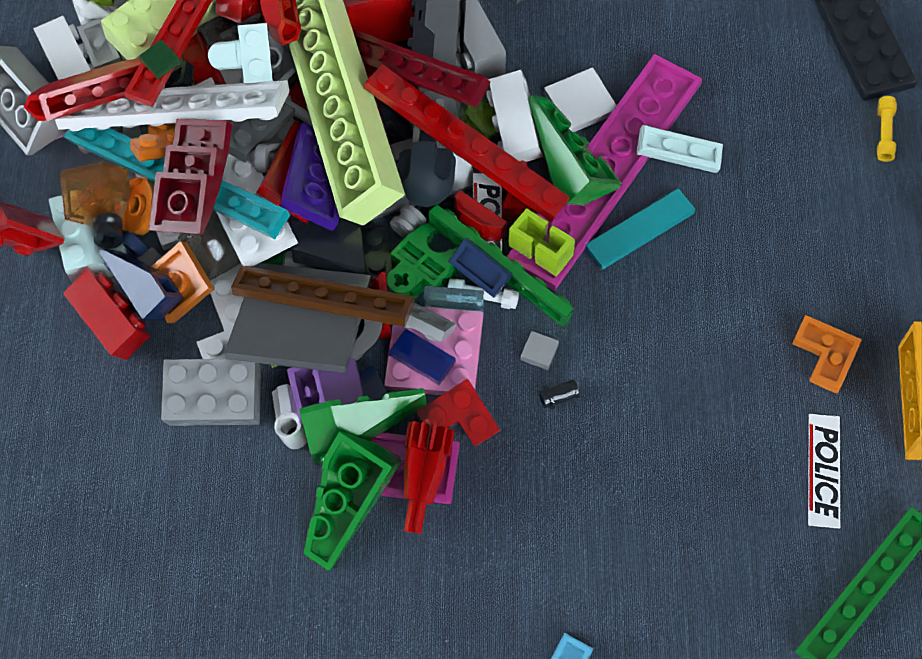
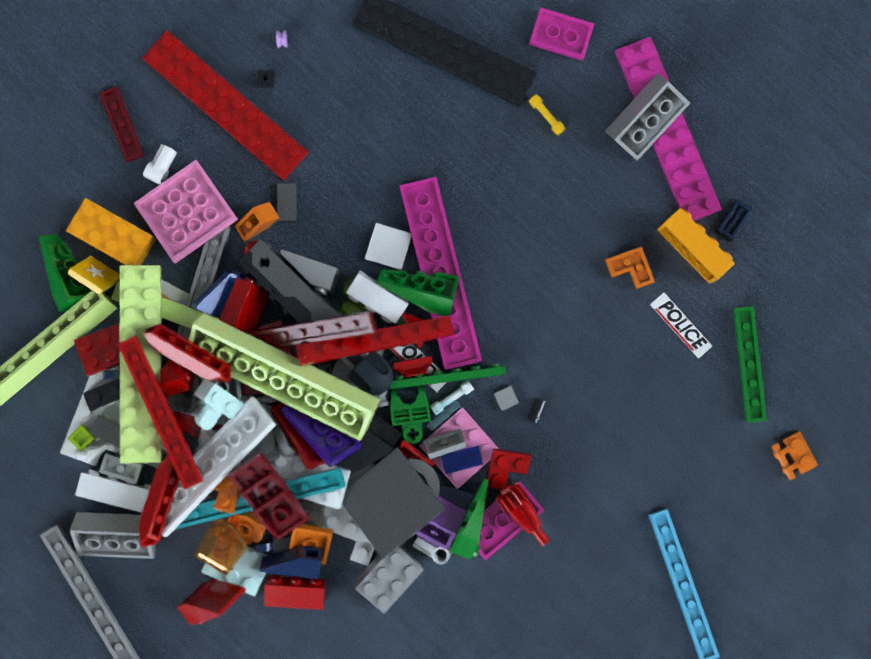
camera: 55 degrees left, 20 degrees up
(108, 230) = (249, 556): black wheel -> none
(159, 59) = (183, 456): dark green tile -> none
(323, 295) = (393, 484): reddish brown plate -> none
(349, 487) = (500, 554): green wedge -> none
(480, 267) = (443, 391): dark blue tile -> none
(529, 238) = (466, 349): lime piece -> none
(639, 229) = (487, 288): teal tile -> none
(679, 149) = (465, 228): light aqua tile -> none

